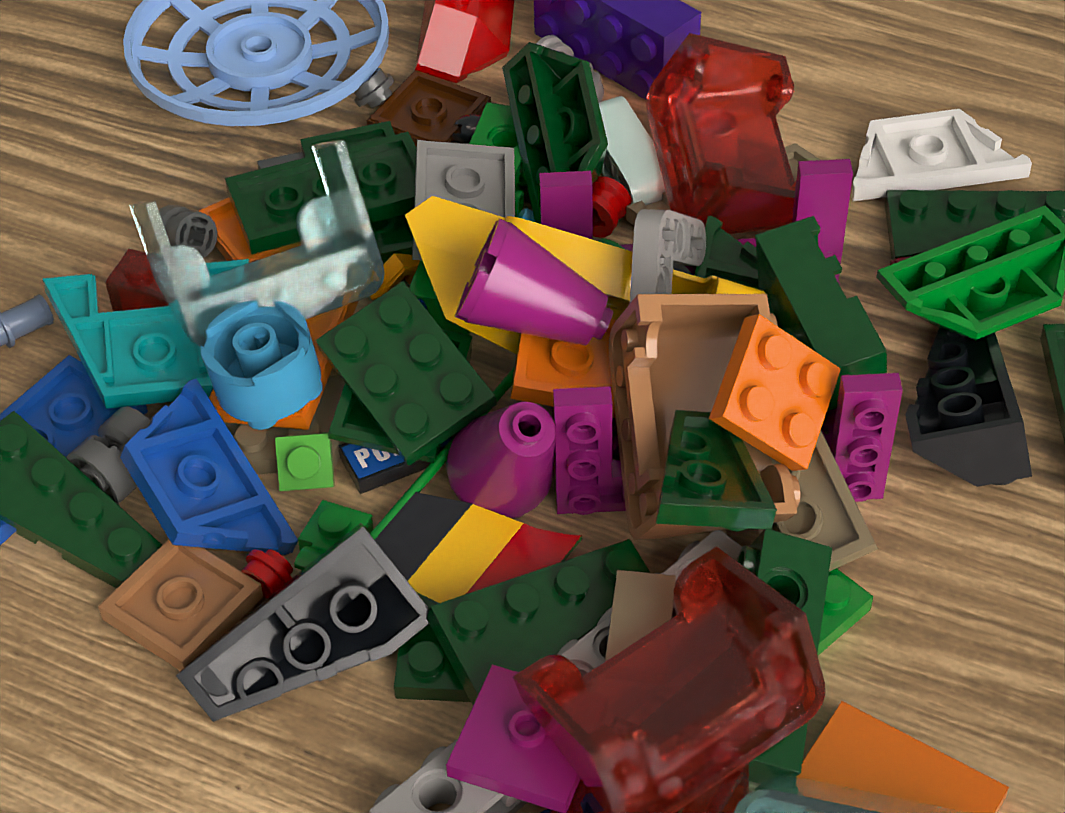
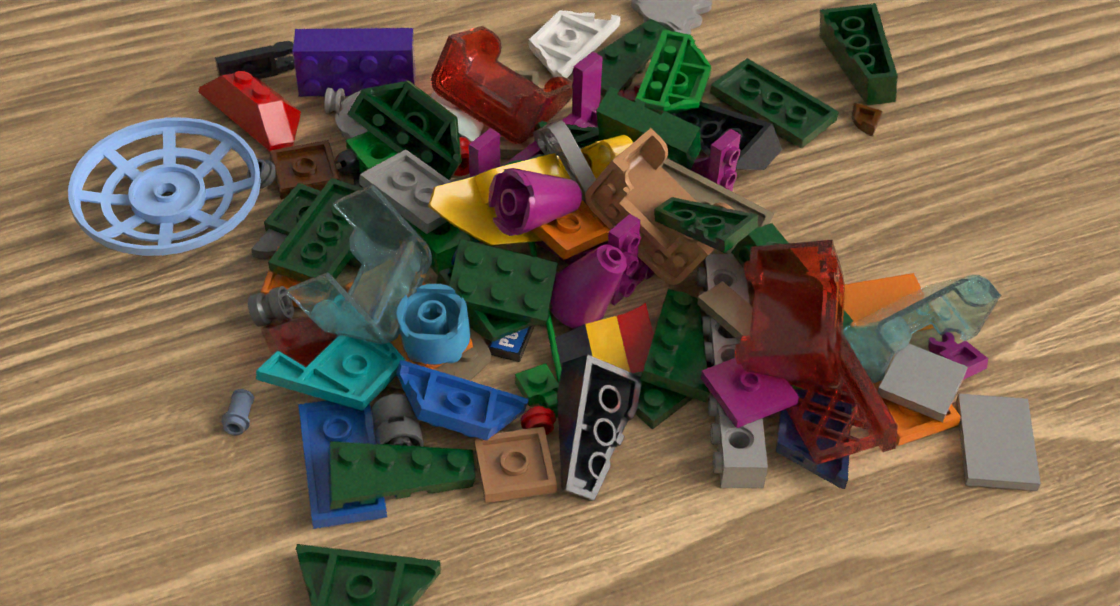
camera: 50 degrees left, 0 degrees up
(304, 461) = (485, 363): bright green plate -> none
(775, 393) = (691, 171): orange plate -> none

